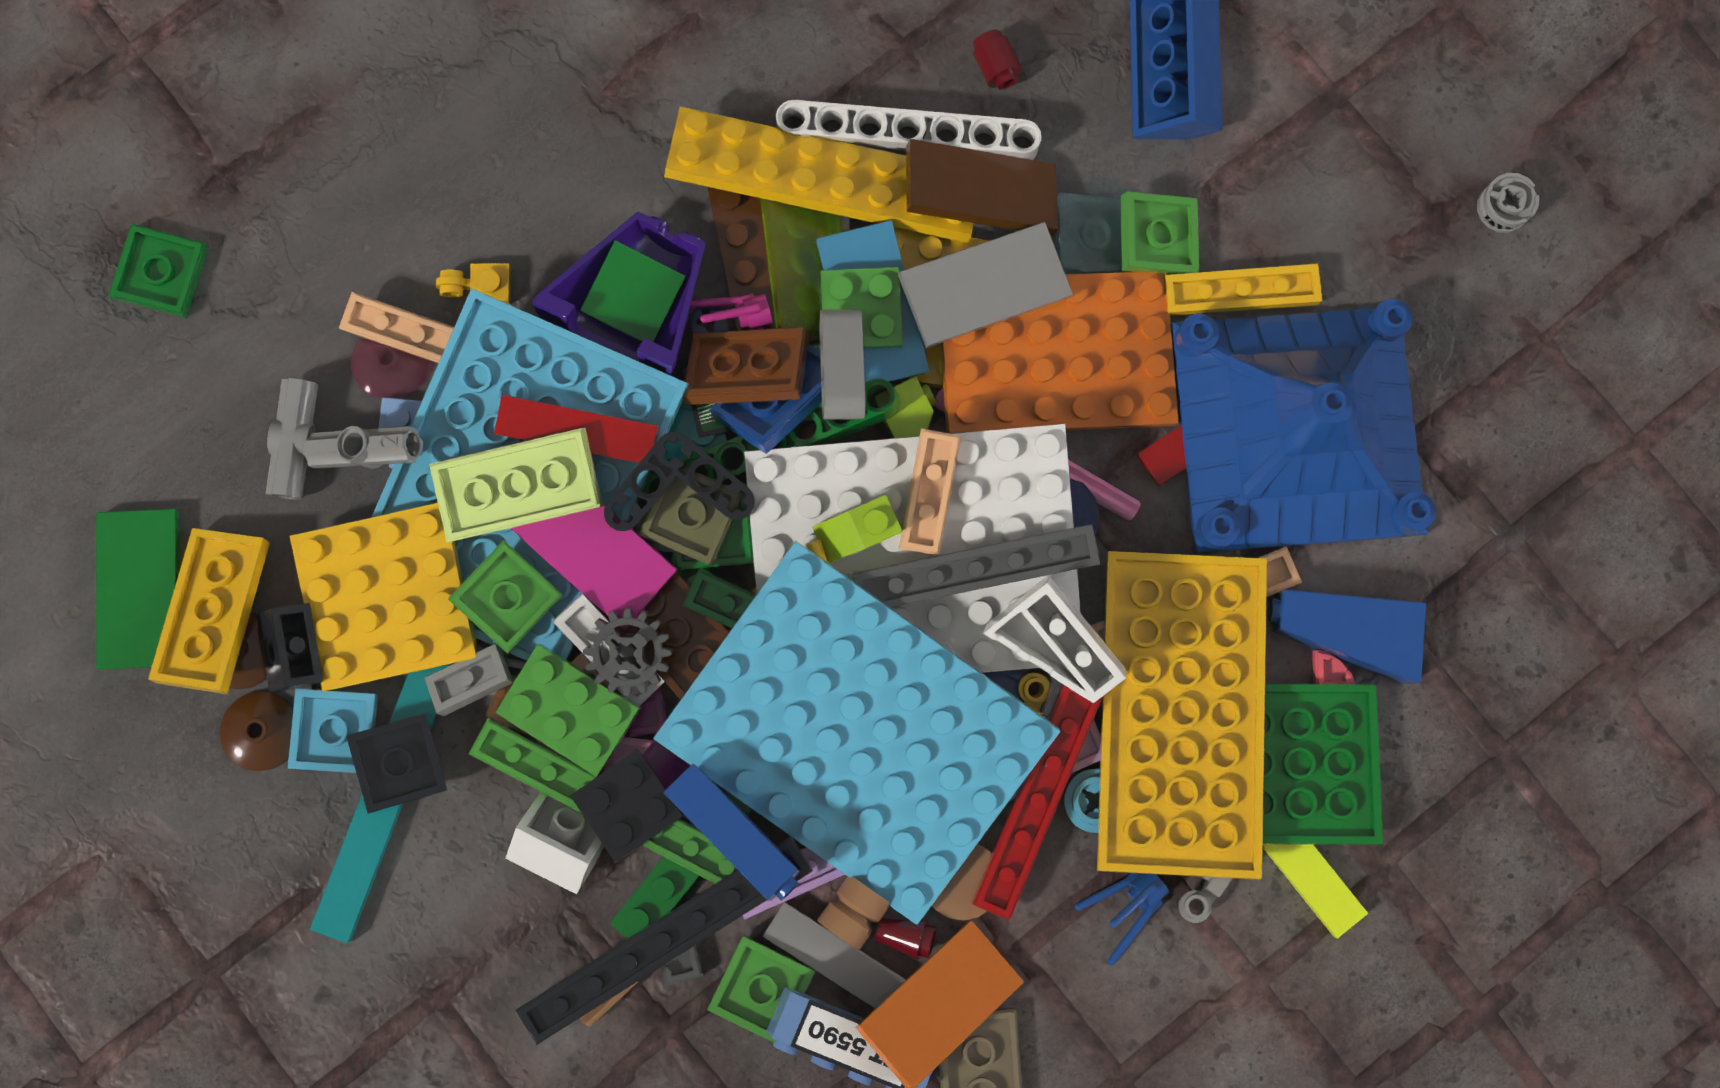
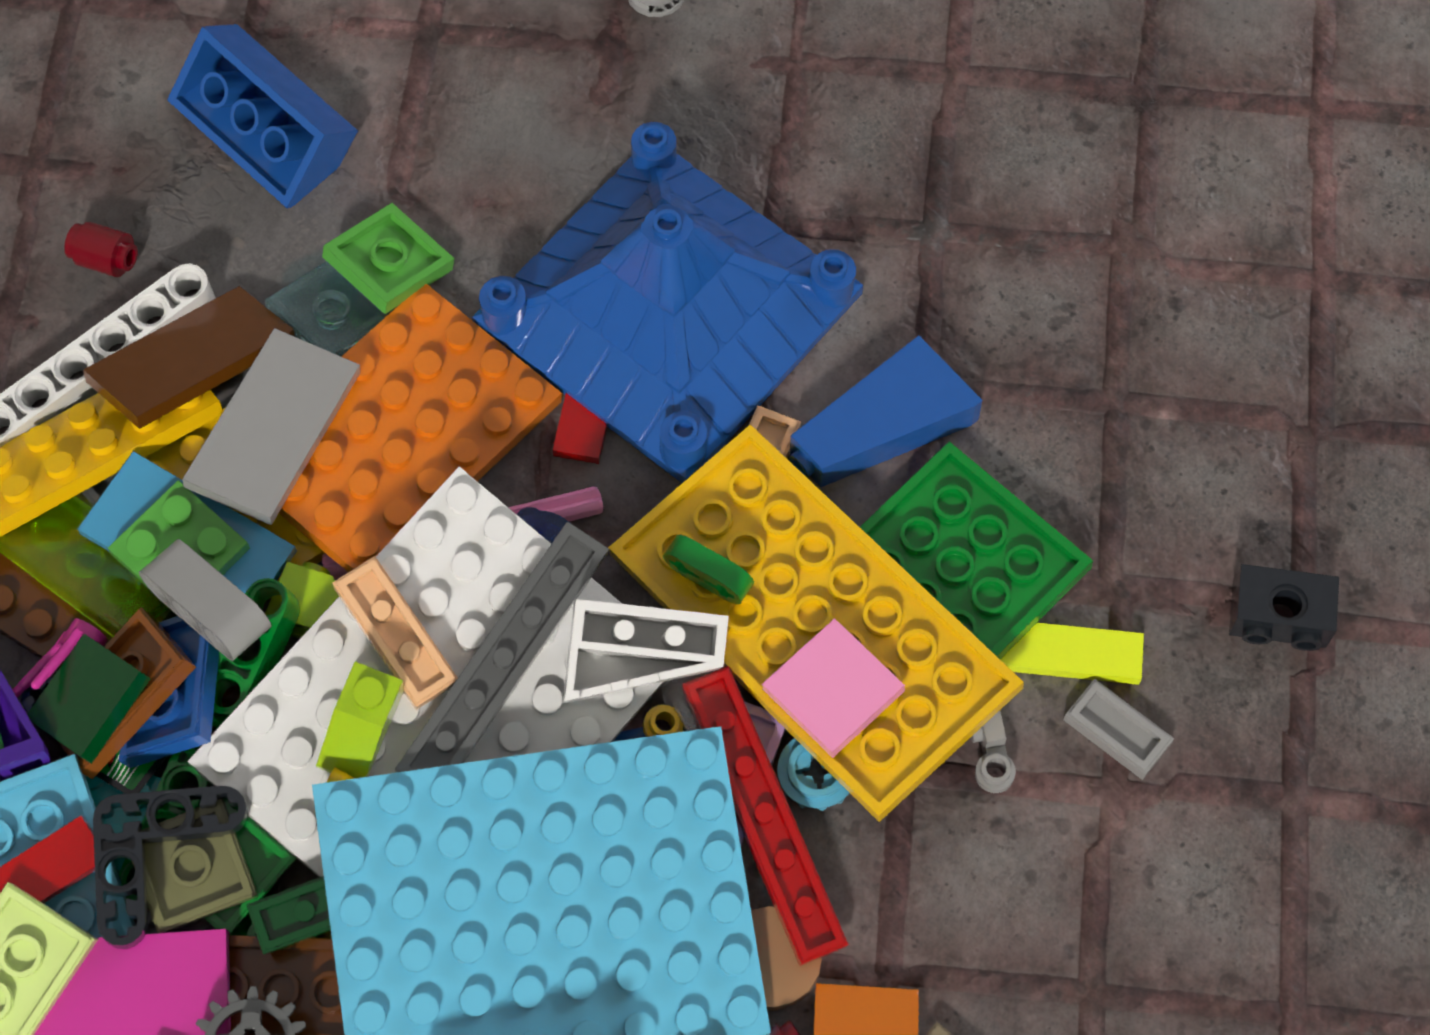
camera: 40 degrees left, 15 degrees down
(725, 355) = (88, 698): none -> dark green tile
(1144, 893) = (940, 804): blue plant -> none
(1149, 627) = (708, 569): none -> green beam
(1149, 771) = (833, 687): none -> bright pink tile
(1243, 289) = (506, 237): yellow plate -> none
(1293, 952) = (1118, 729): none -> light grey tile
(1329, 669) = (897, 469): coral tile -> none
(1488, 995) = (1308, 595): none -> black brick

